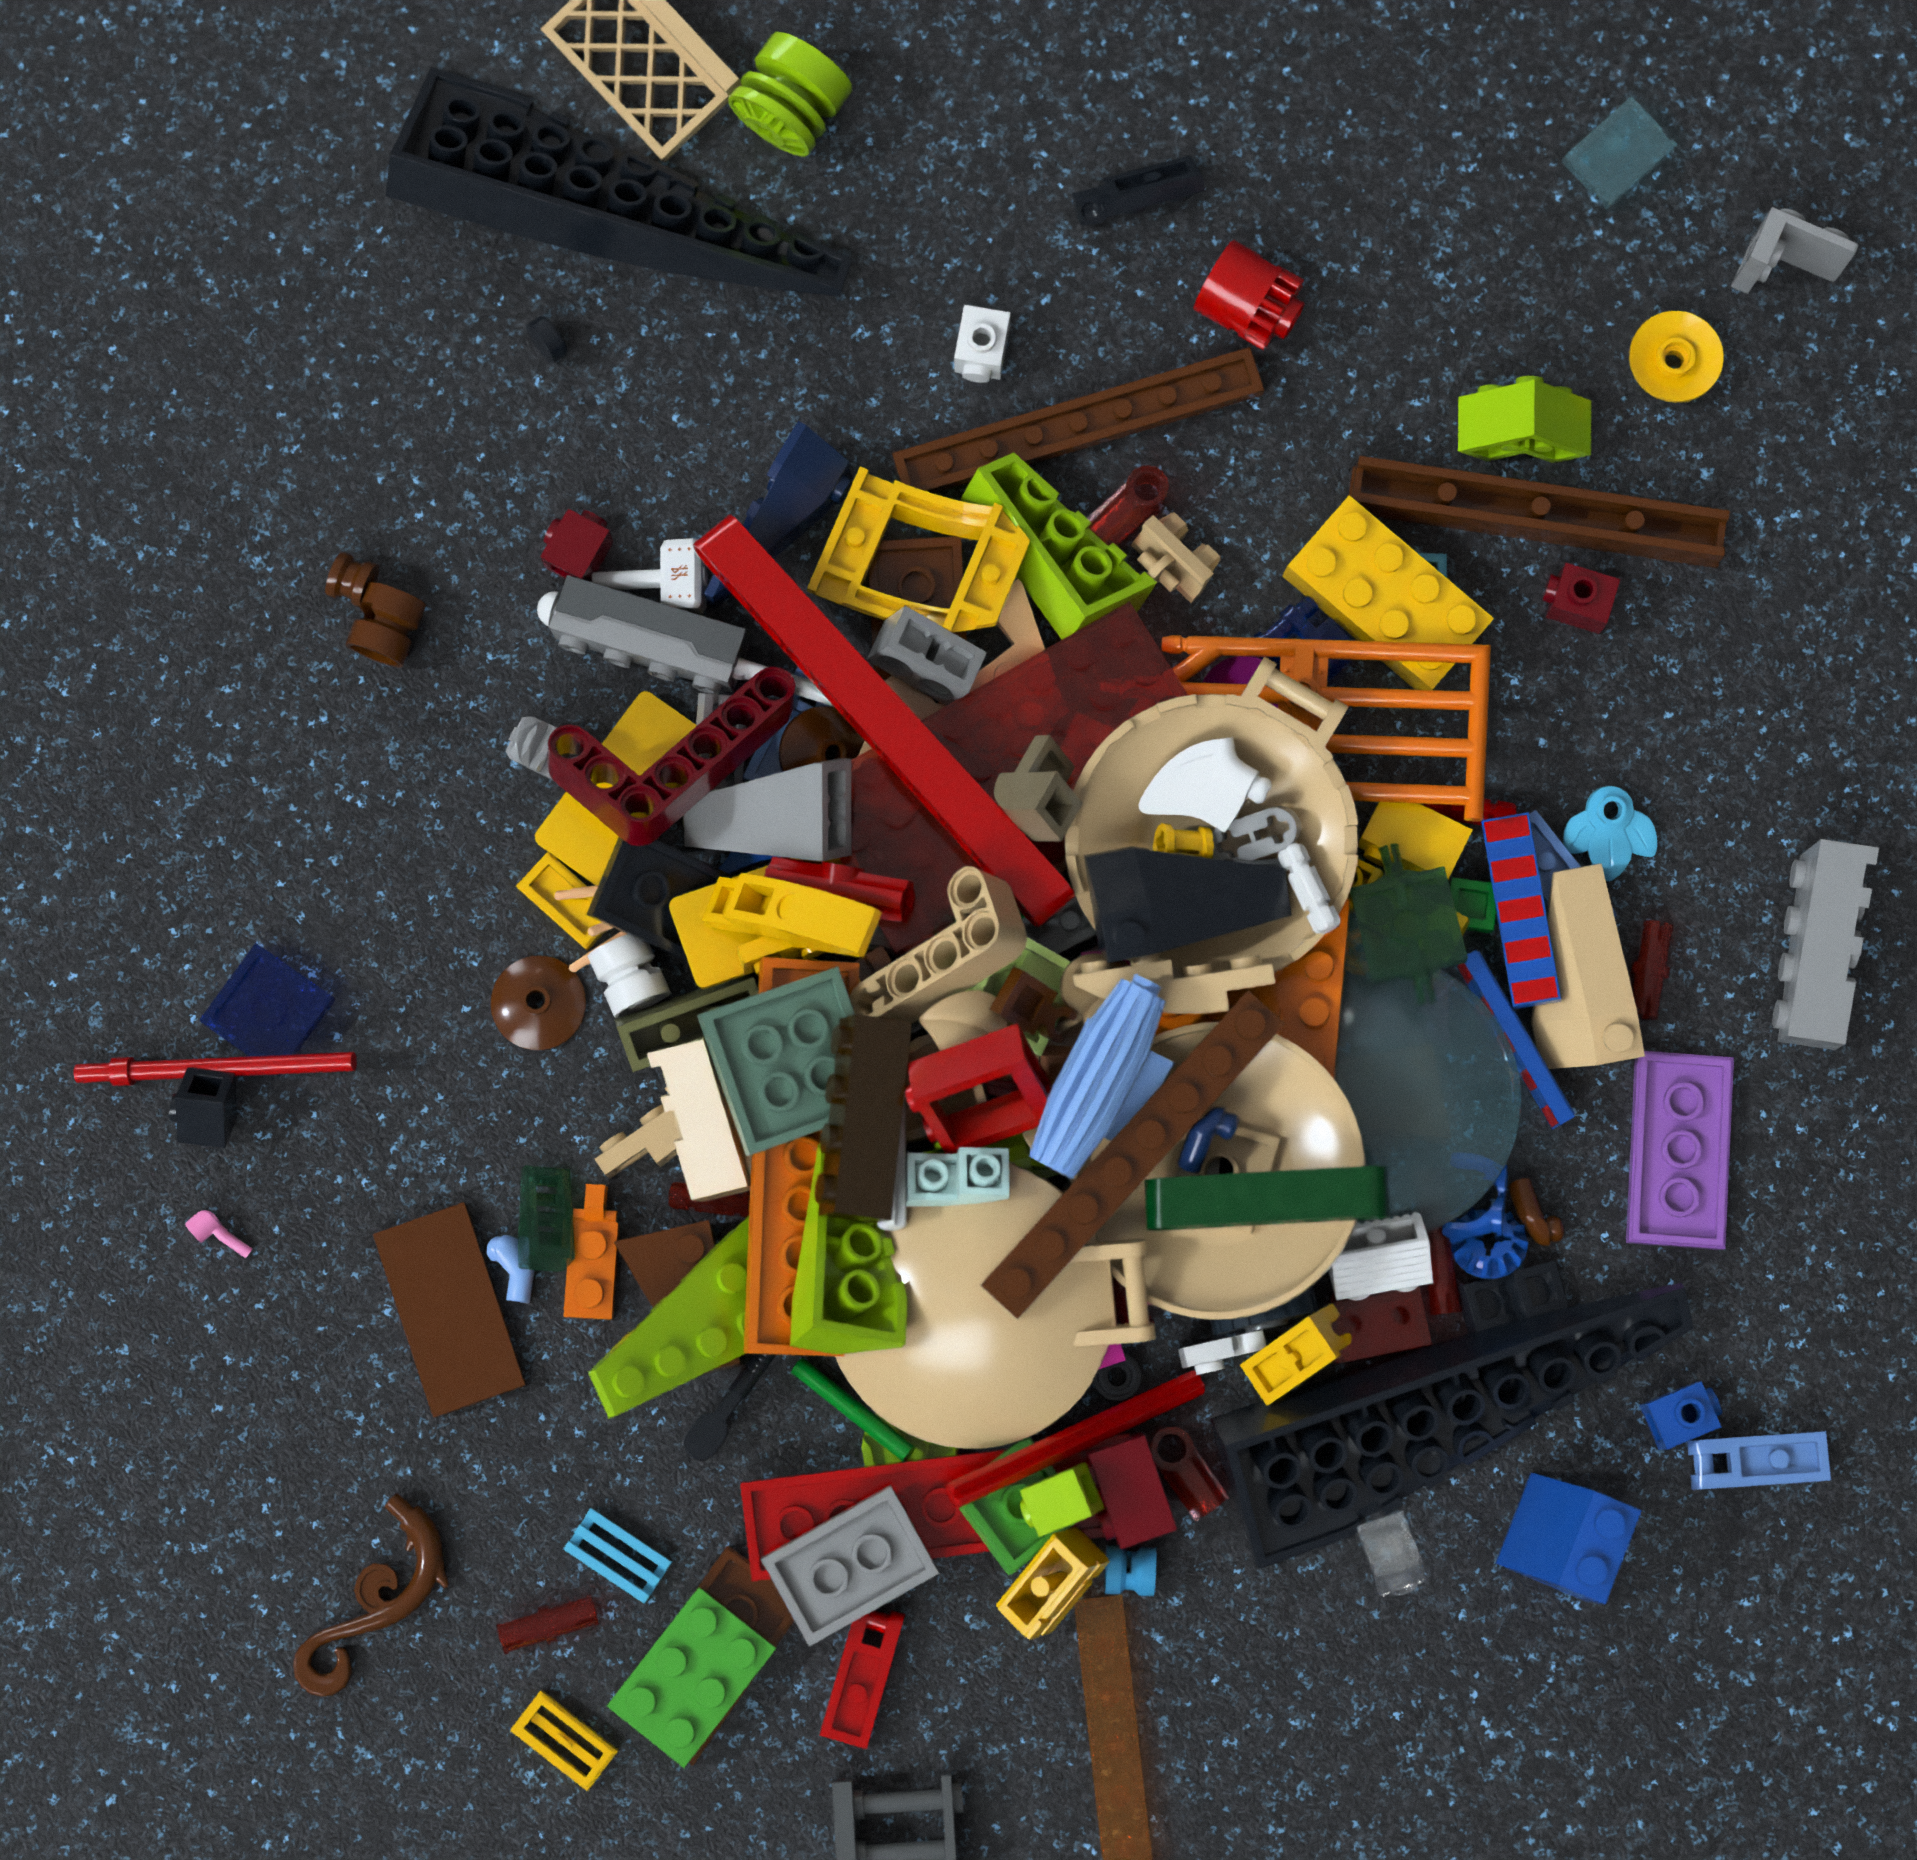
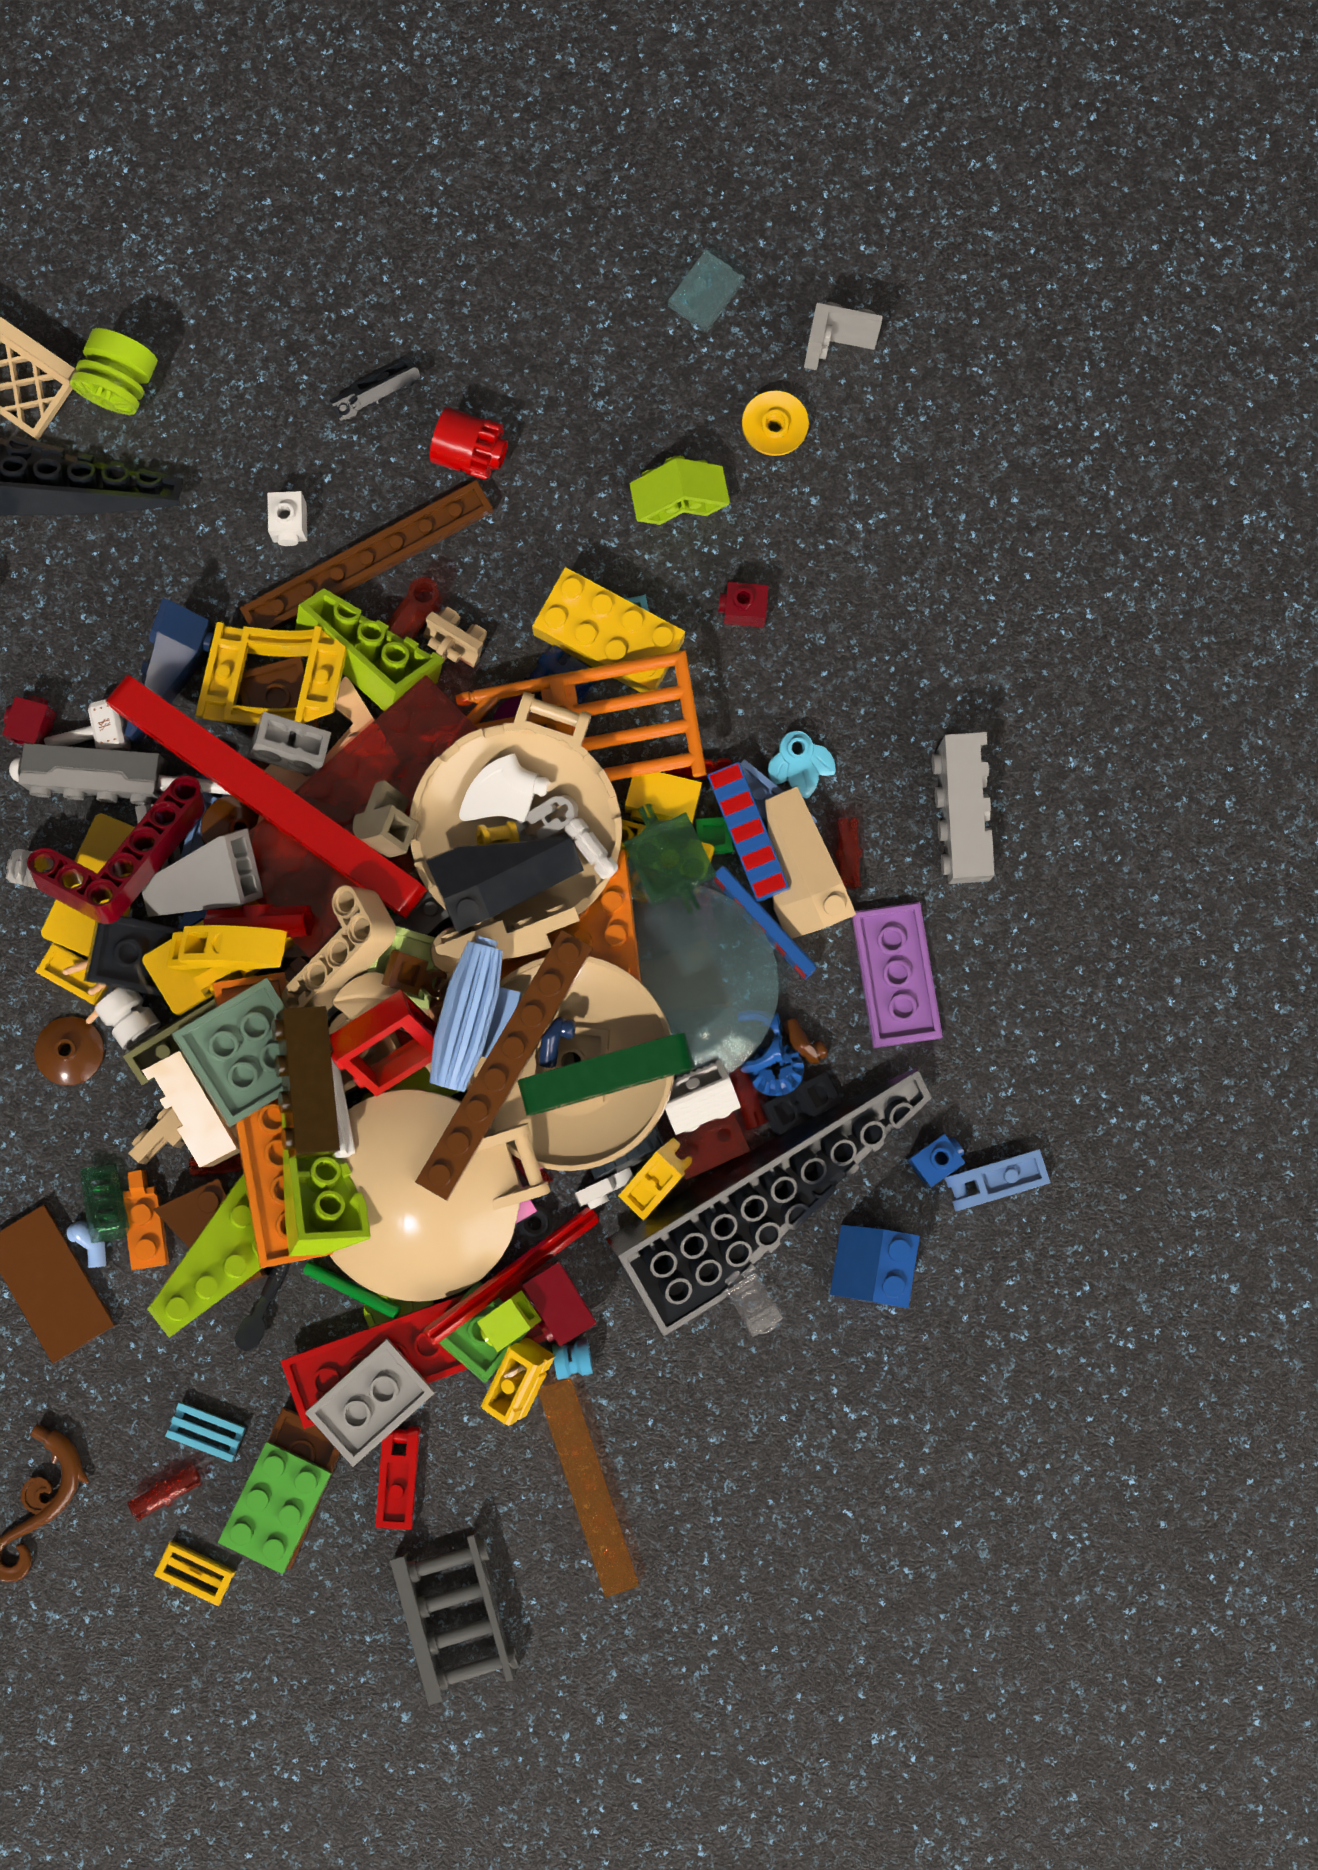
camera: 15 degrees left, 0 degrees up
(958, 1178) = (383, 1110): light aqua slope -> none
(1188, 1475) = (600, 1282): clear red piece -> none
(1540, 511) = (703, 551): reddish brown tile -> none

